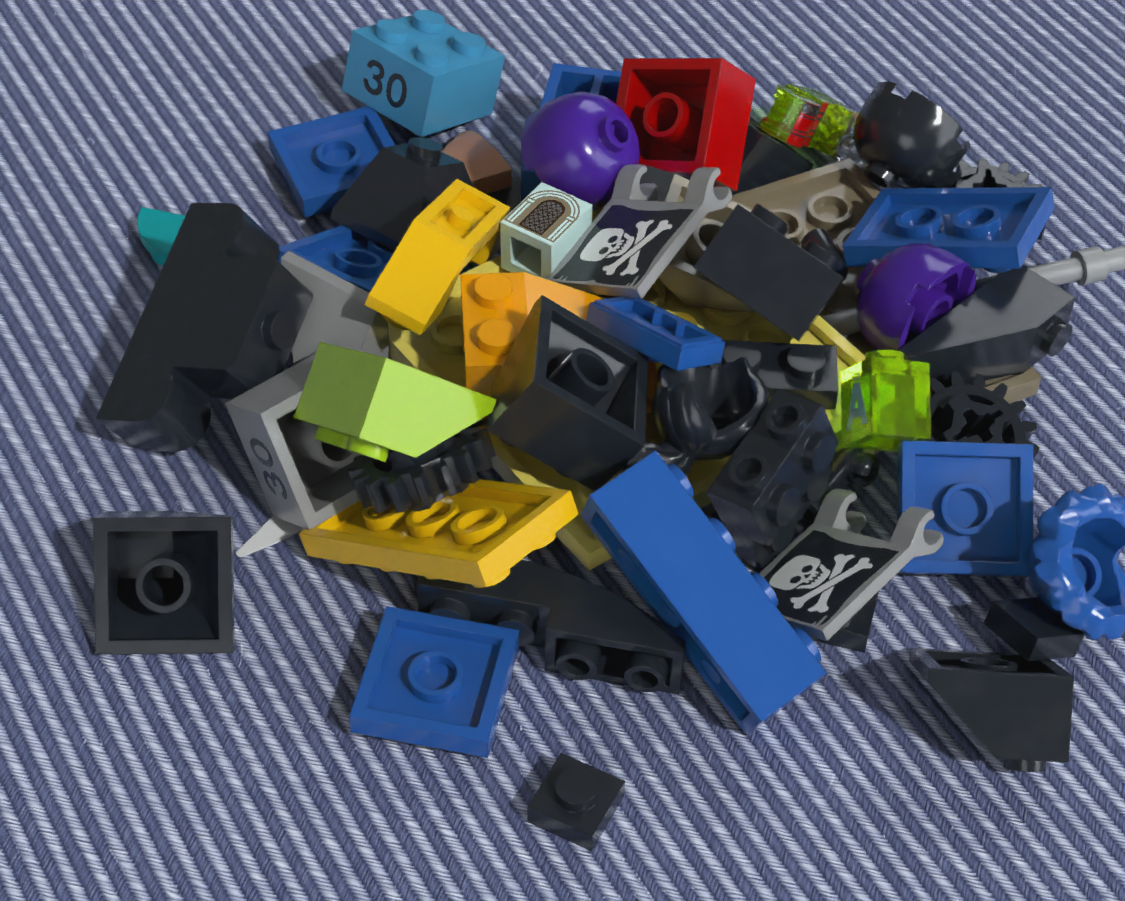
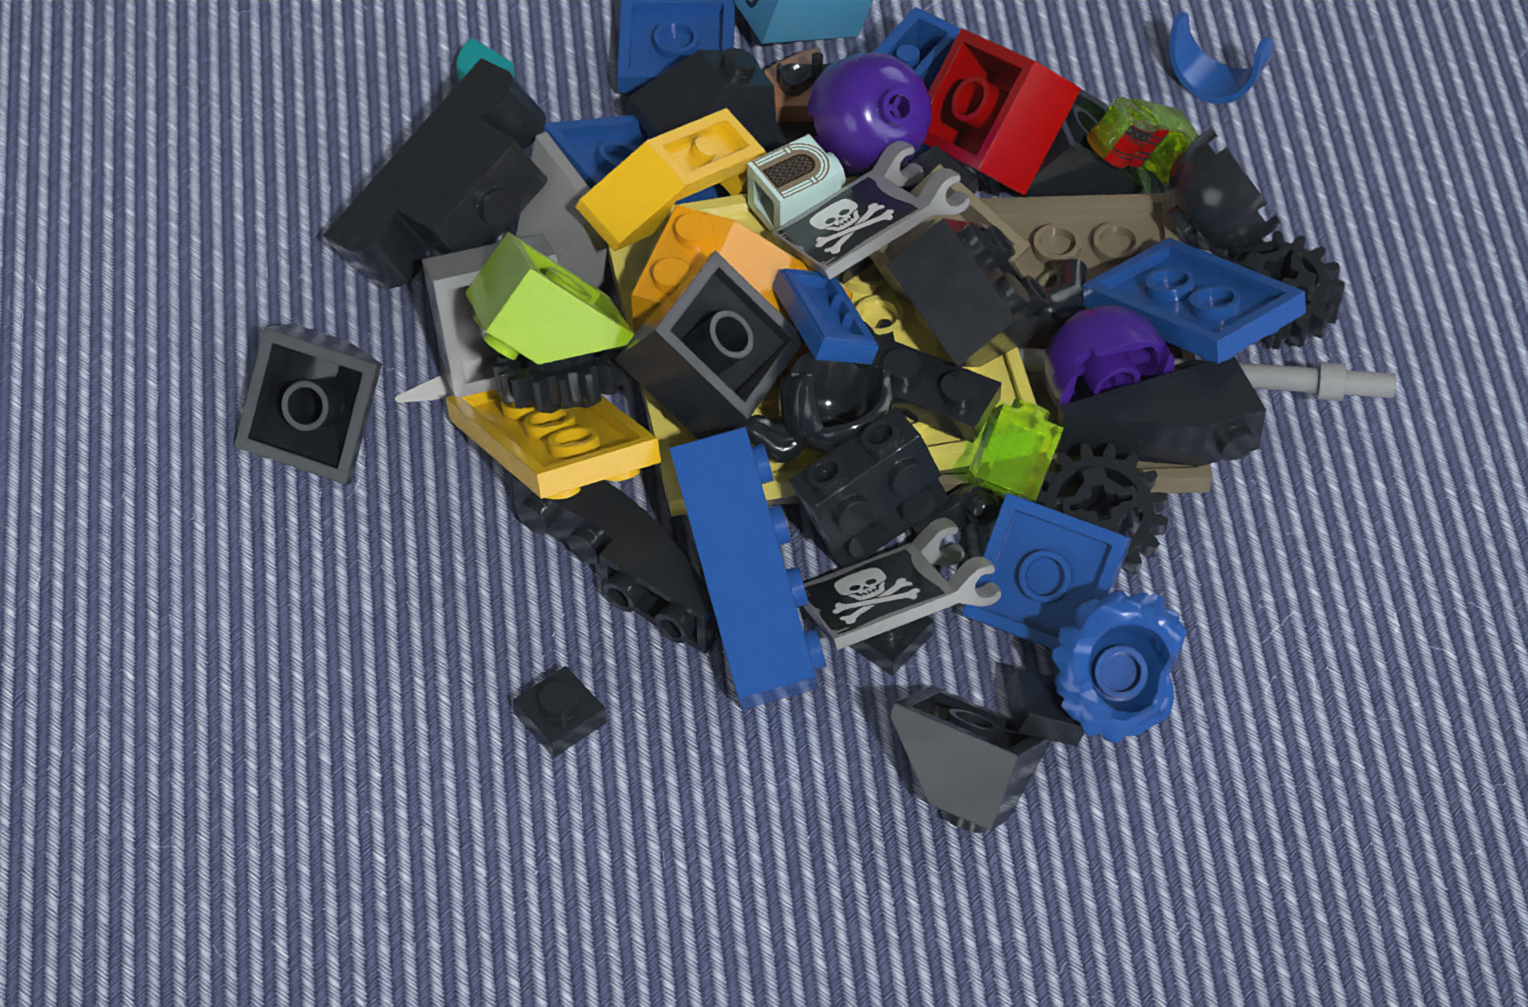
camera: 25 degrees right, 5 degrees up
(435, 682) = (495, 568): blue plate -> none
(477, 152) = (800, 77): none -> black piece
(814, 67) = (1205, 76): none -> blue helmet

